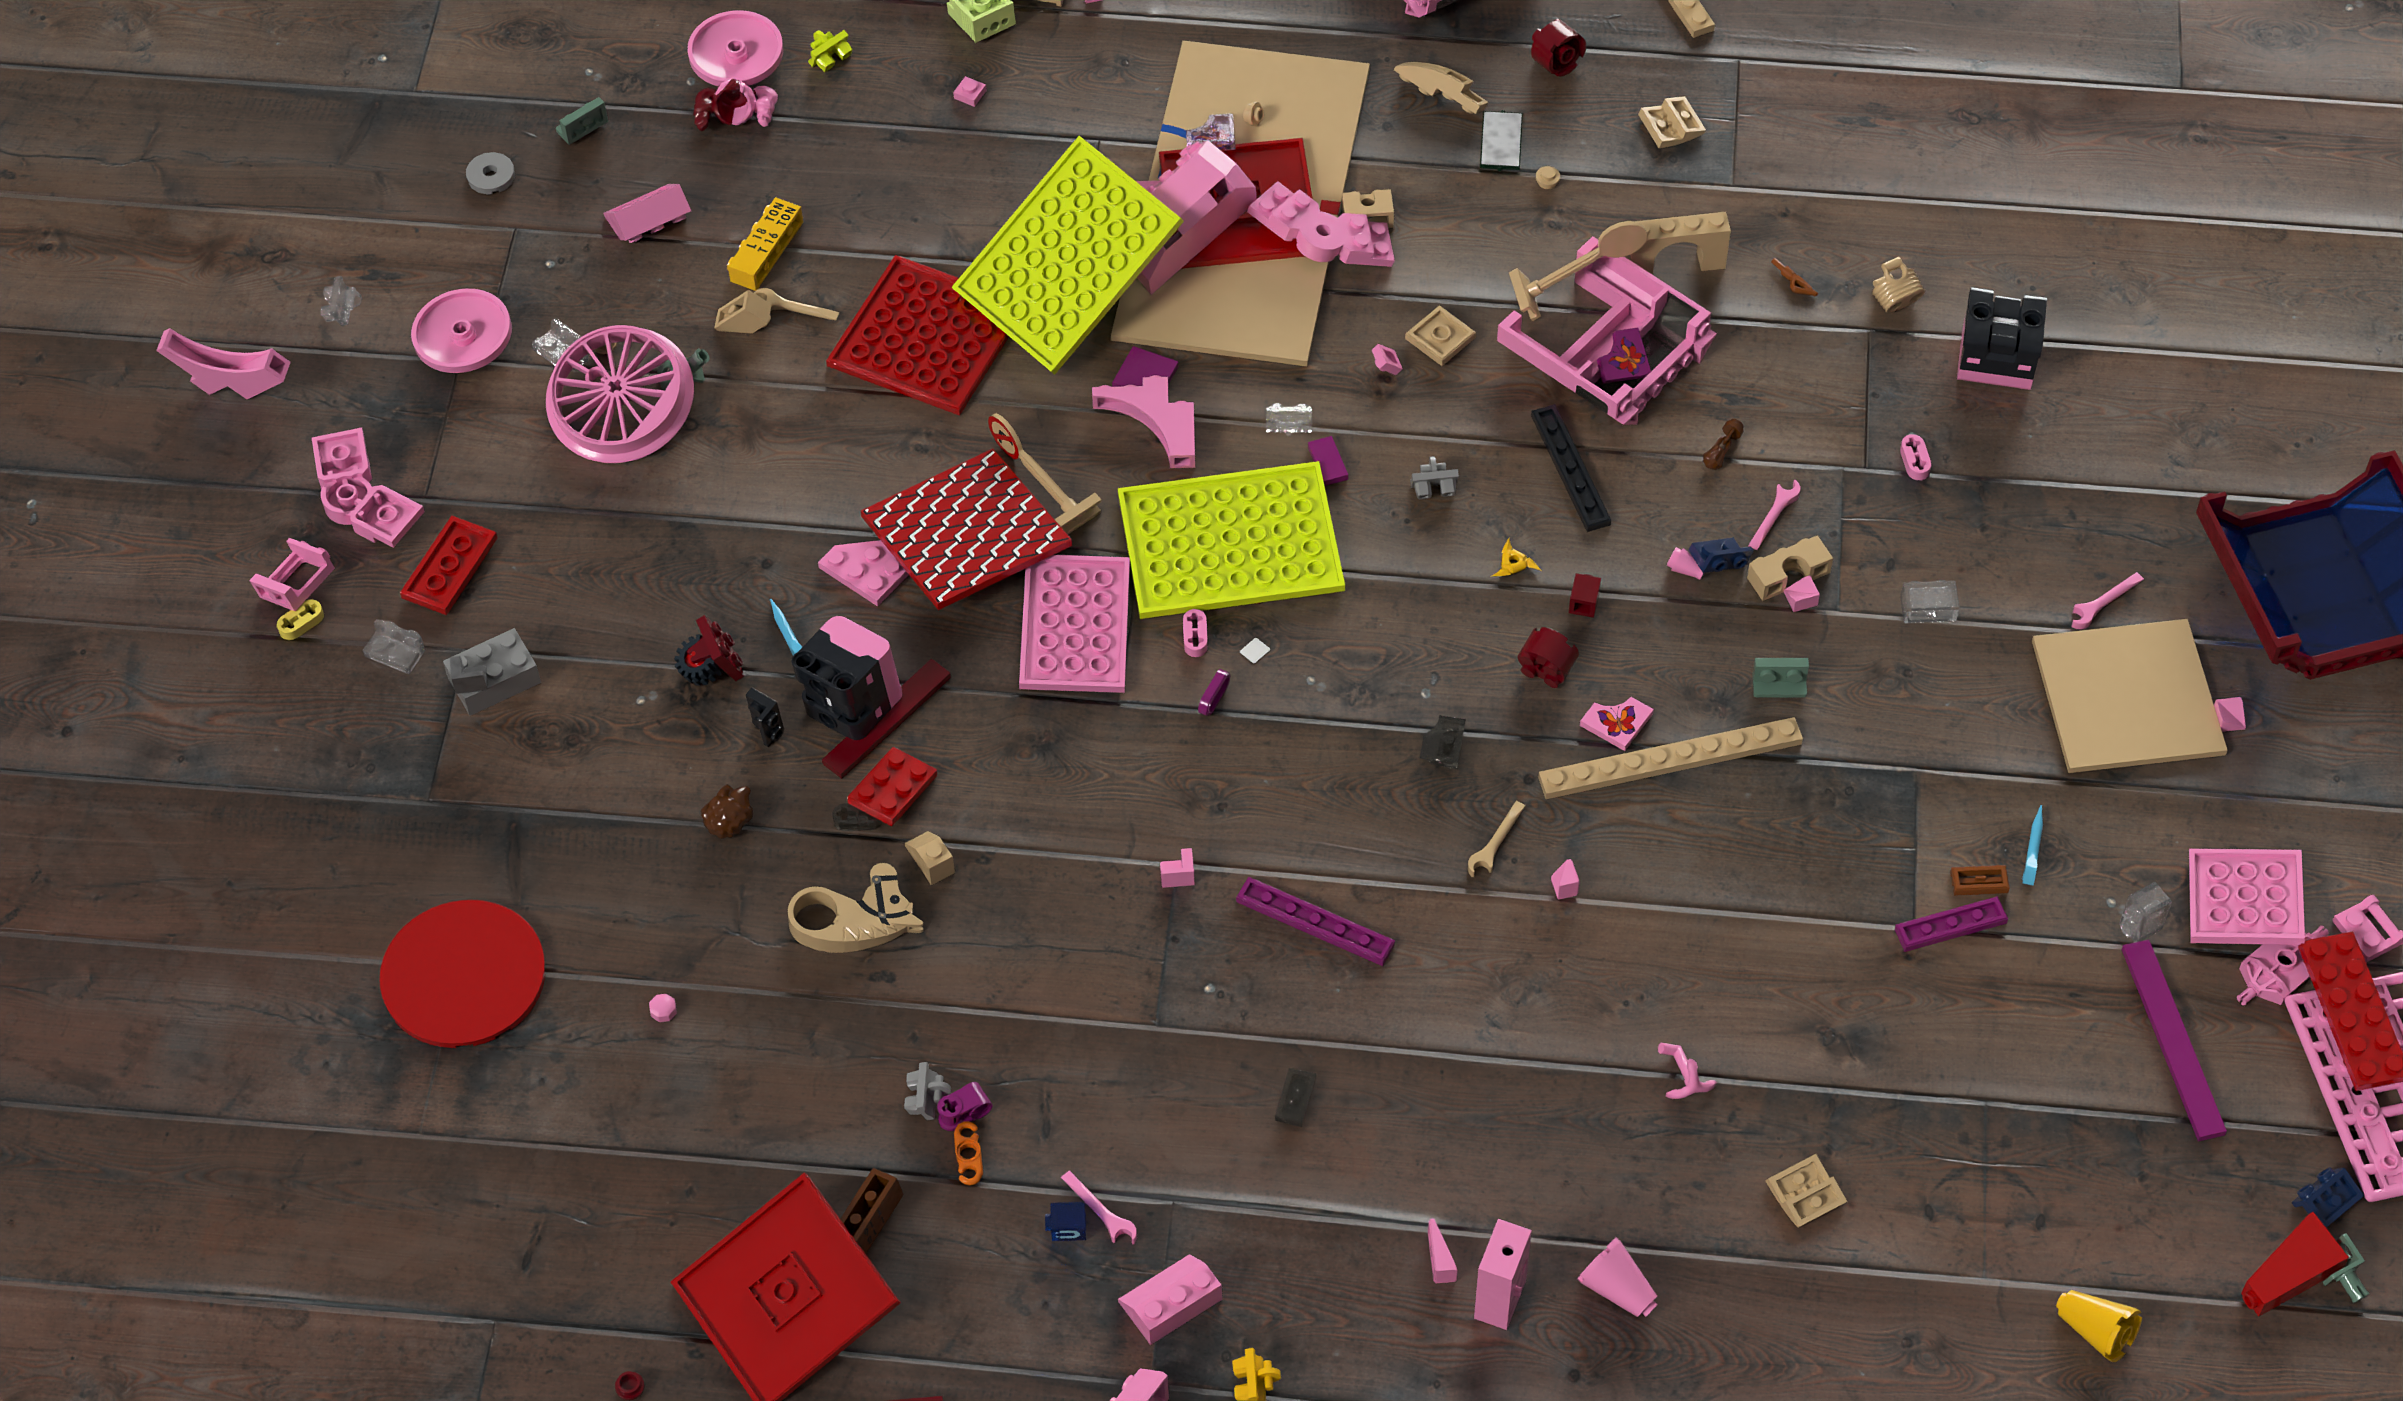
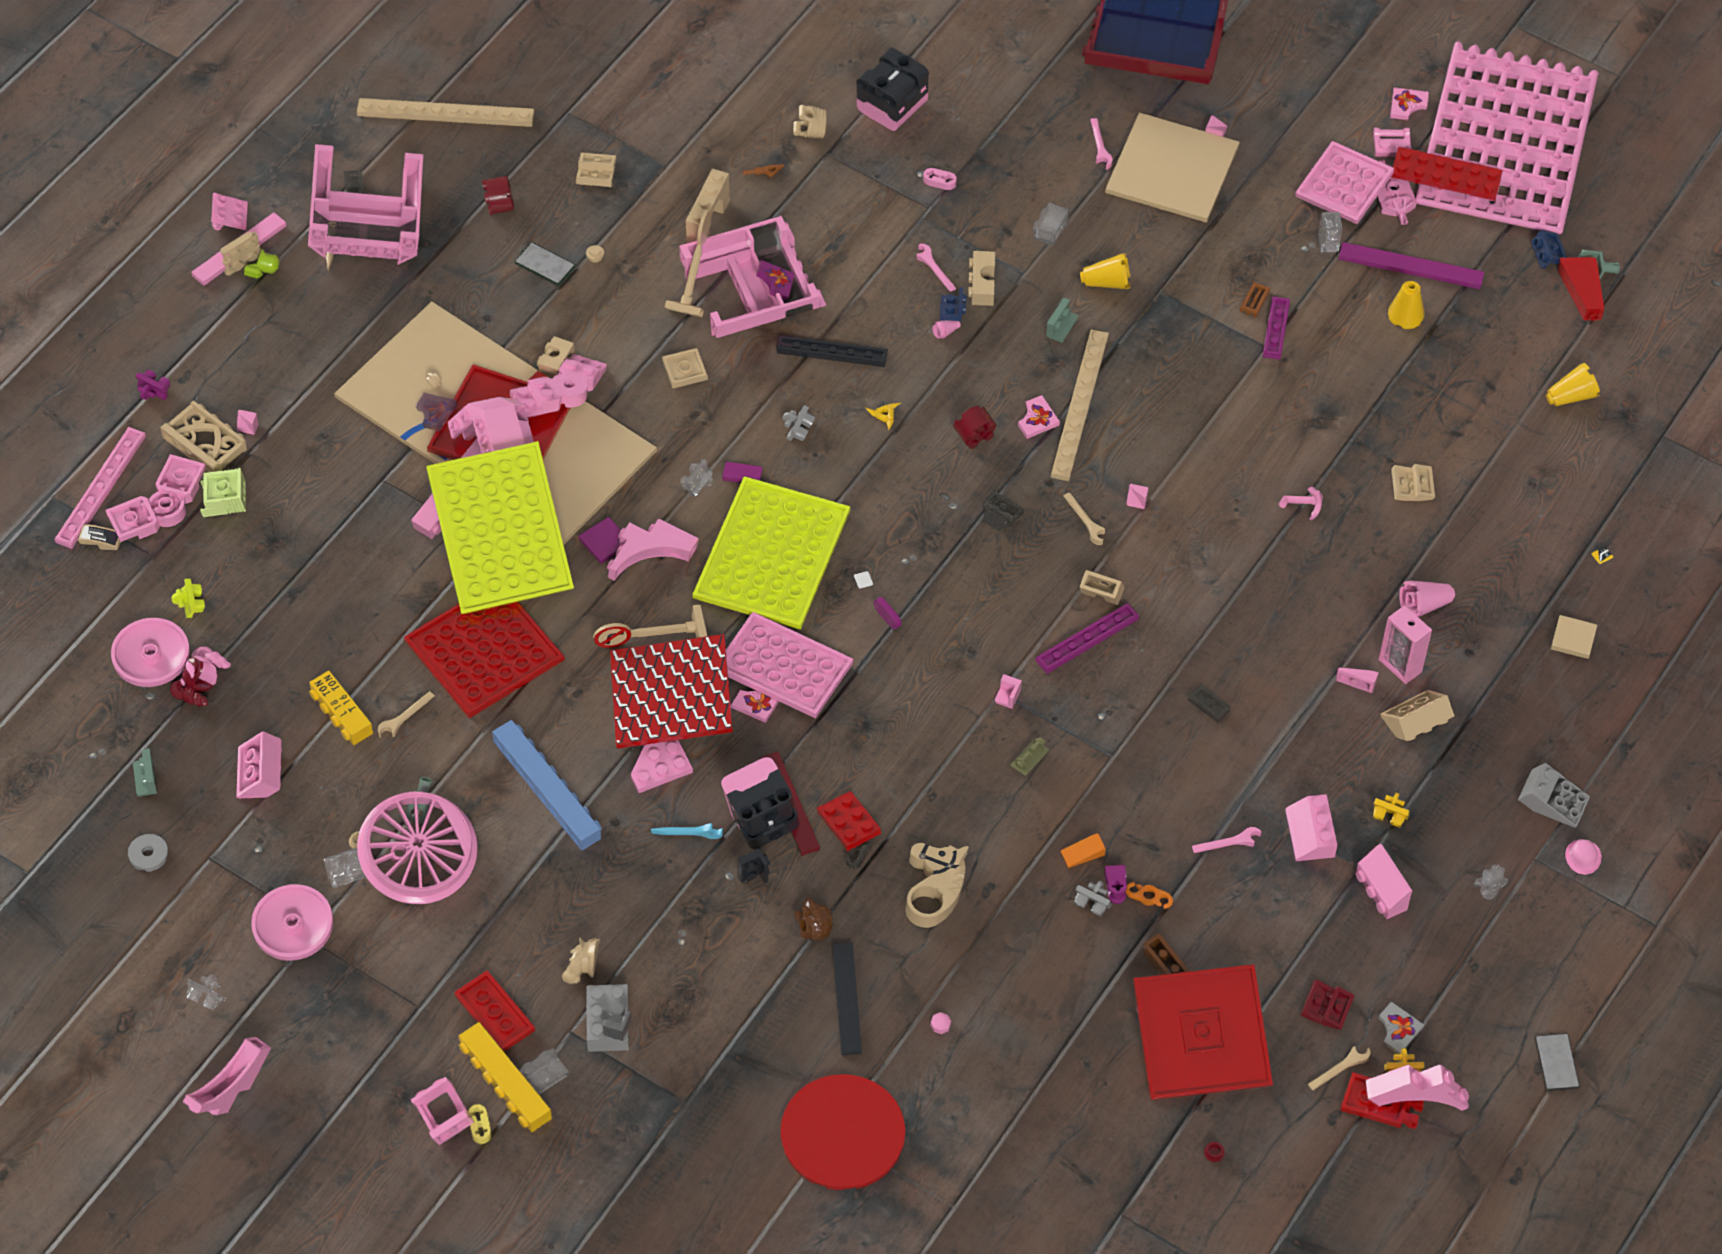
camera: 65 degrees left, 0 degrees up
(350, 498) = (369, 1046): bright pink plate -> none
(374, 601) = (504, 1077): none -> yellow brick
(552, 612) = (582, 960): none -> tan piece
(646, 896) = (847, 999): none -> black tile
(707, 654) = (679, 882): dark red plate -> none
(744, 314) = (395, 746): tan slope -> none
(772, 474) = (547, 785): none -> medium blue brick
(931, 856) = (915, 821): tan slope -> none
(969, 91) = (286, 533): bright pink plate -> none
(992, 1053) = (1084, 851): none -> orange slope
(1005, 622) = (754, 704): none -> bright pink tile
(1066, 1221) = (1230, 860): clear blue brick -> none
(1096, 935) = (1030, 756): none -> olive hinge
(1190, 633) = (831, 604): bright pink beam -> none
(1386, 359) = (685, 405): bright pink plate -> none
(1392, 888) = (1092, 586): none -> tan brick
(1424, 1349) = (1418, 715): none -> tan slope
(1436, 78) = (475, 270): tan slope -> none
(1584, 595) = (937, 388): dark red brick -> none
(1715, 456) = (861, 255): reddish brown piece -> none
(1802, 594) = (1004, 282): bright pink slope -> none
(1894, 697) = (1108, 273): none -> yellow cone
(2033, 849) = (1263, 270): medium azure piece -> none
(2090, 1060) = (1407, 306): none -> yellow cone

